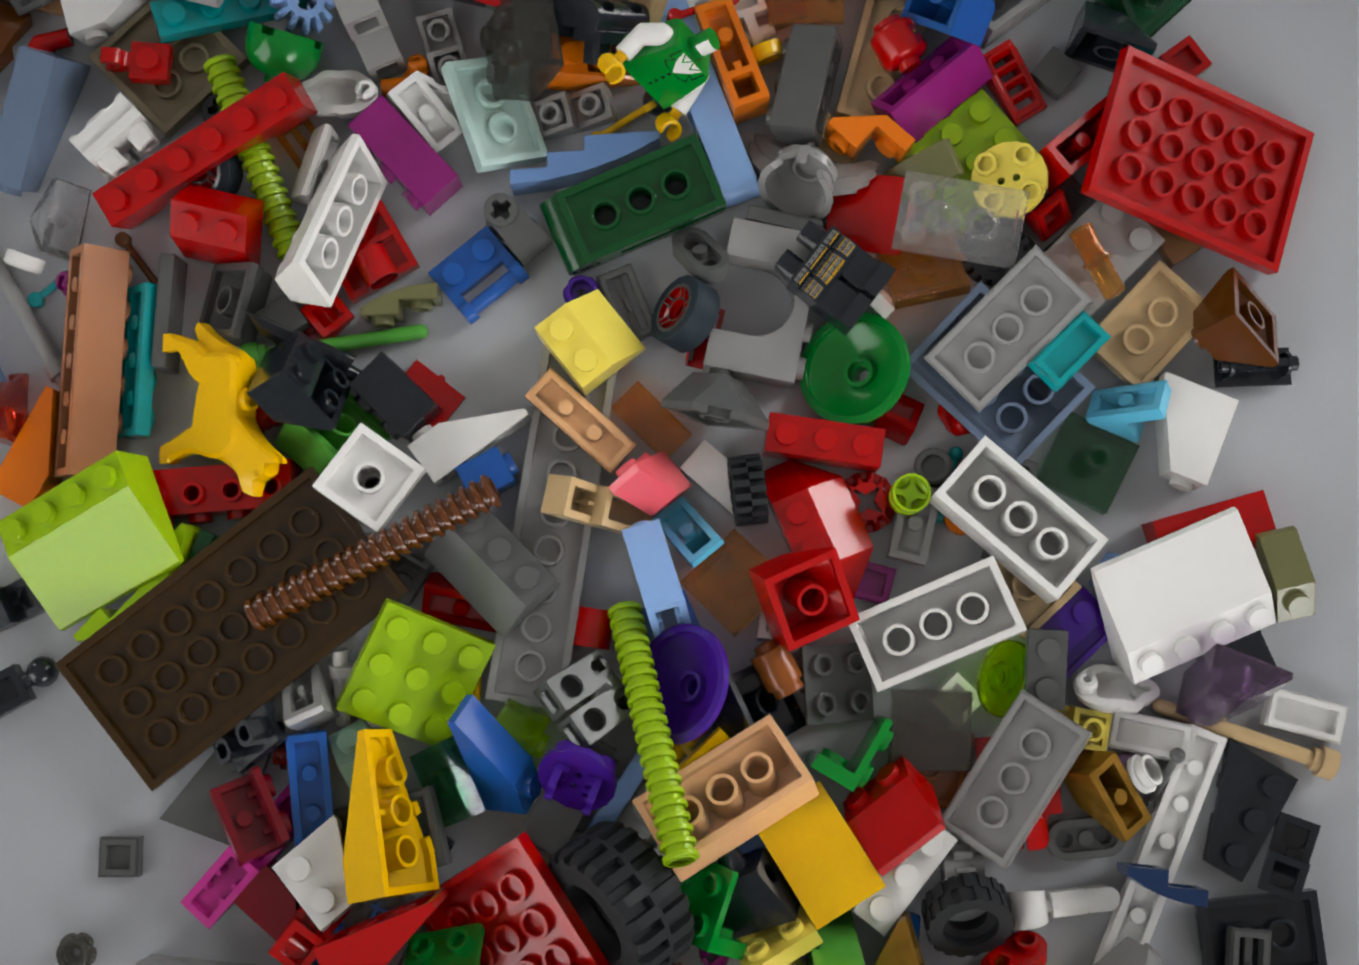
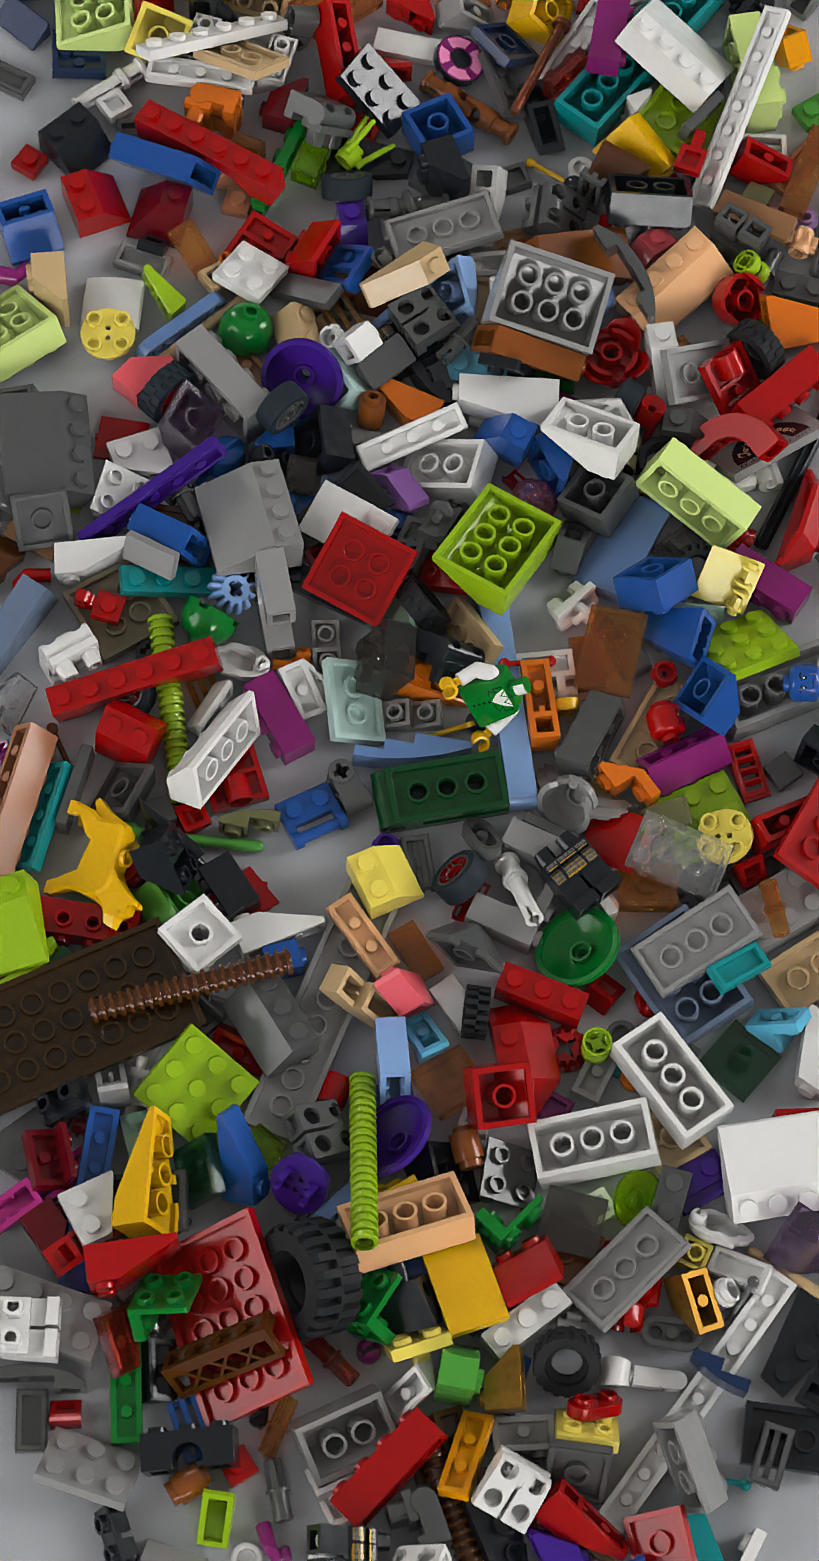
camera: 10 degrees right, 15 degrees down
(756, 301) = (516, 880): none -> white pin

